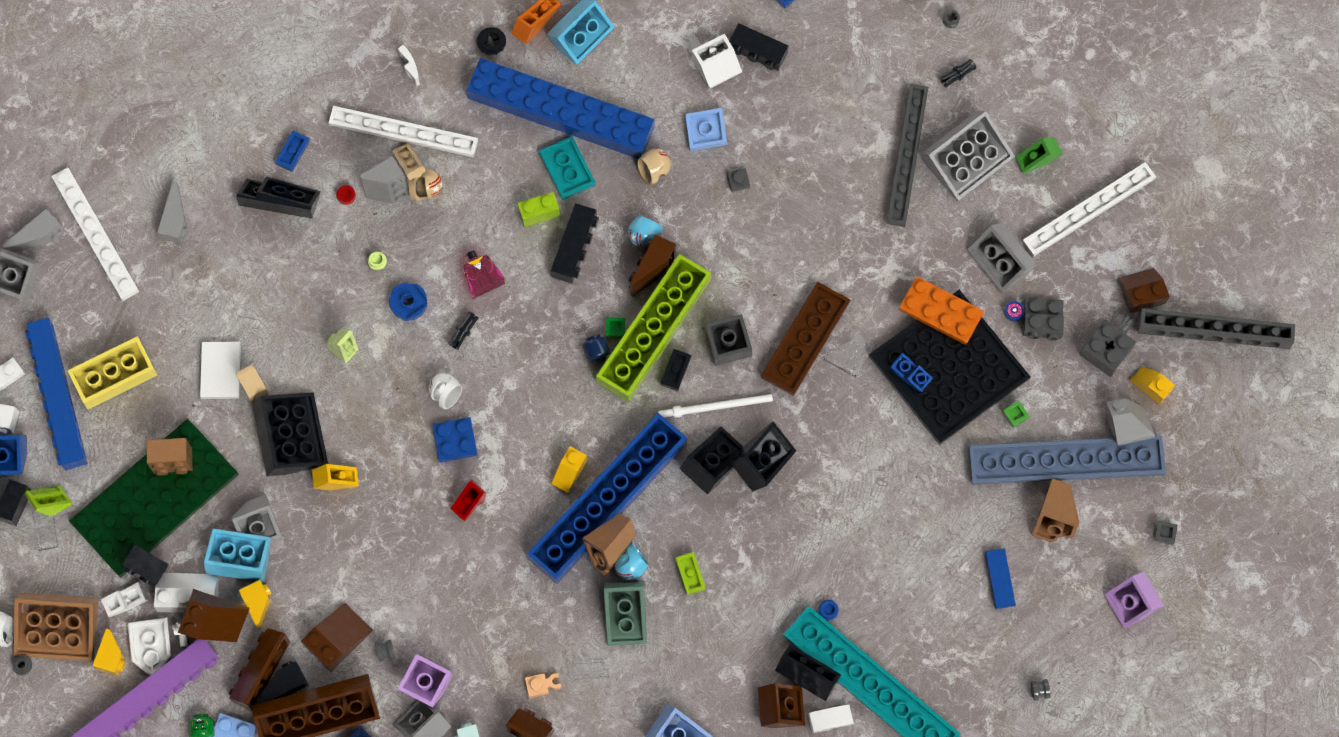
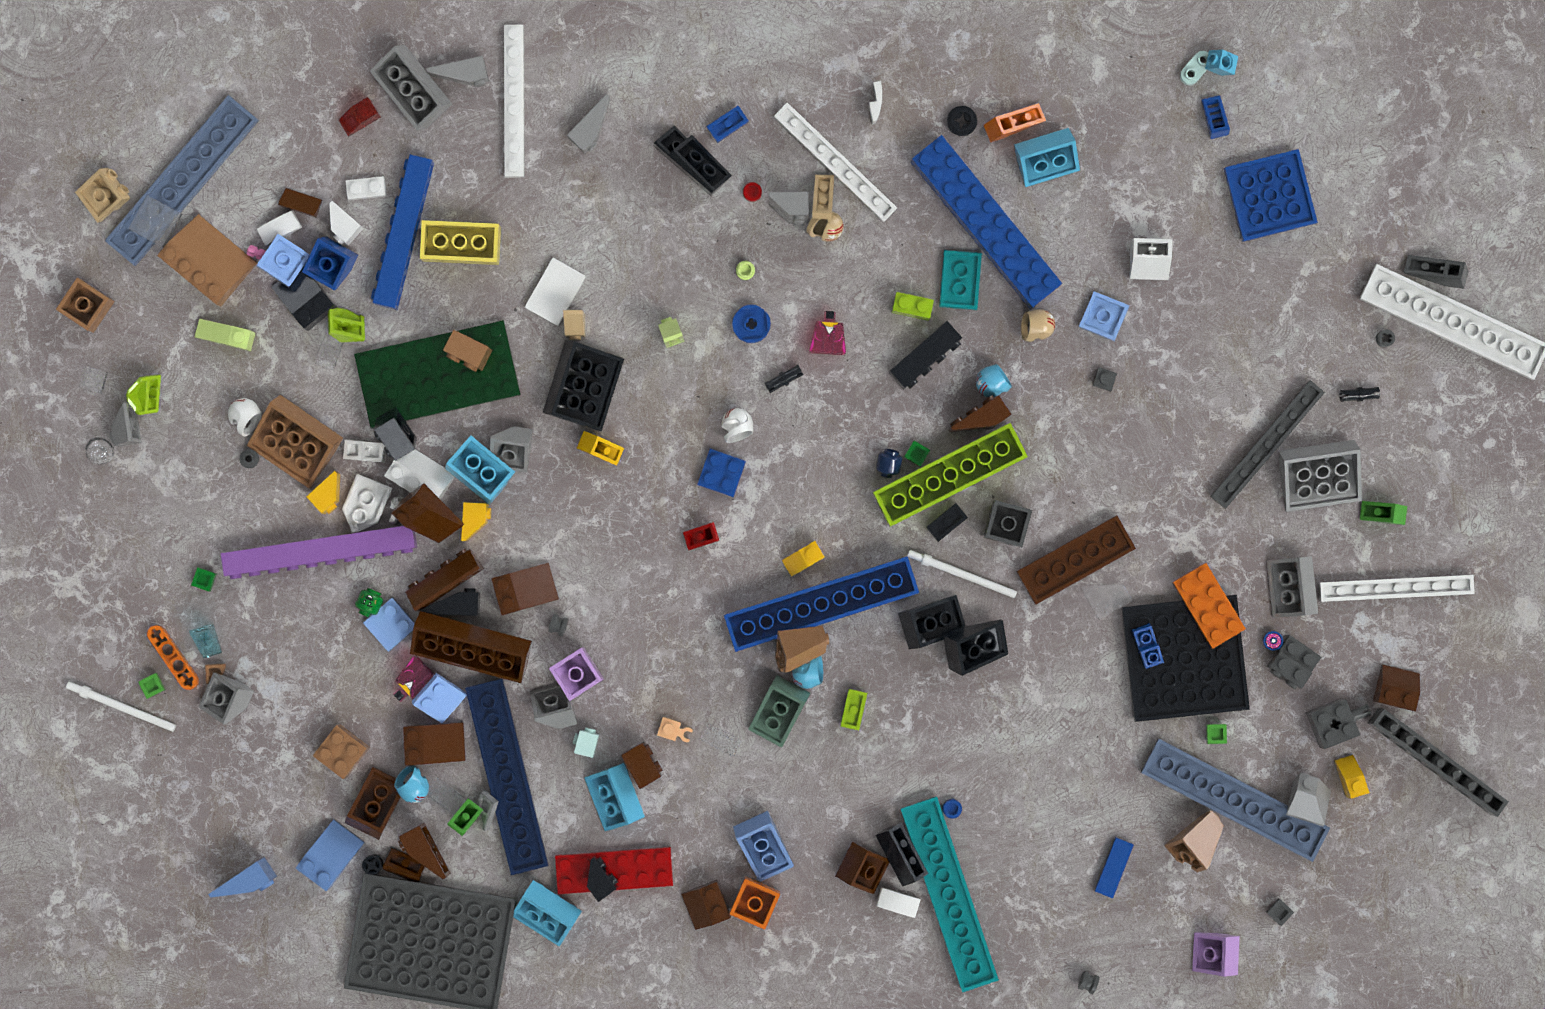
camera: 25 degrees right, 15 degrees up
(758, 47) = (1195, 266): black brick -> none

